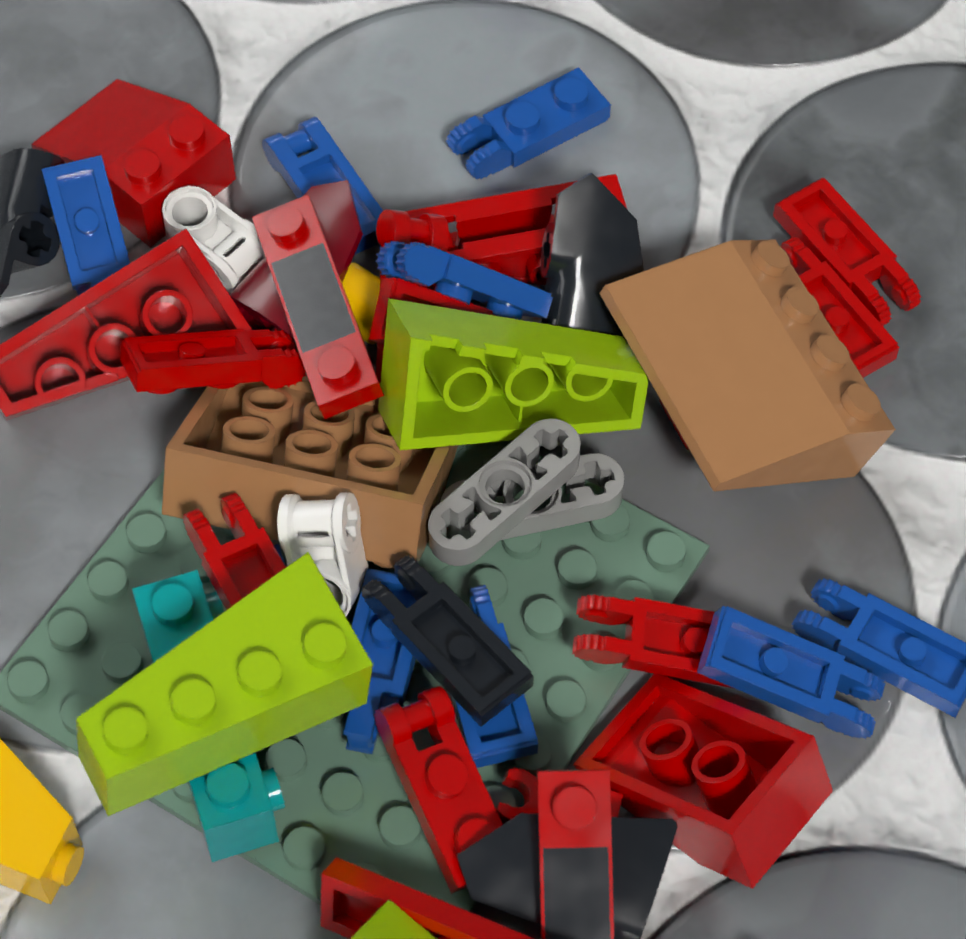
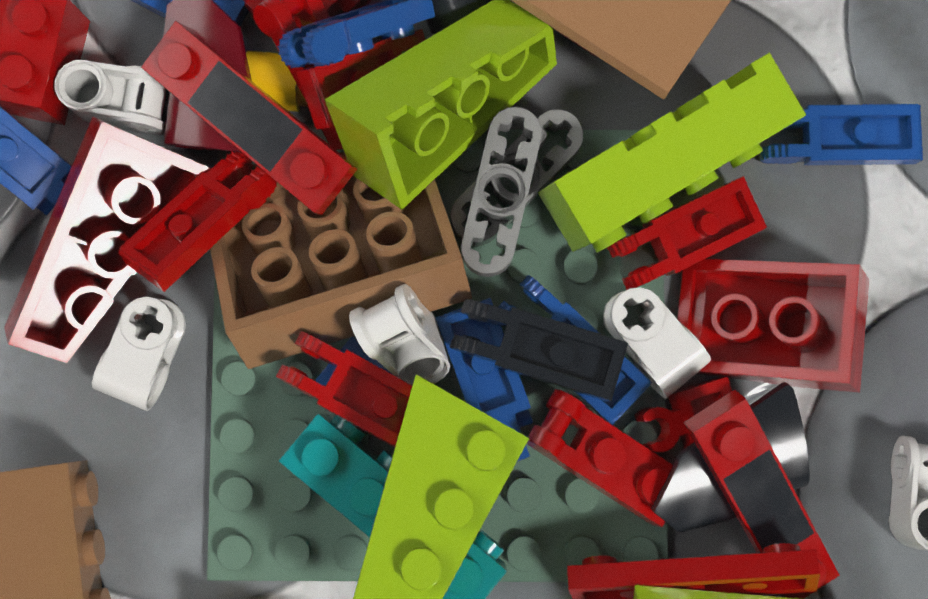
camera: 30 degrees left, 25 degrees up
(73, 457) = (137, 359): none -> white piece
(568, 712) = (662, 346): none -> white piece
(690, 548) = (672, 156): none -> lime wedge
(788, 672) = (786, 210): blue hinge -> none

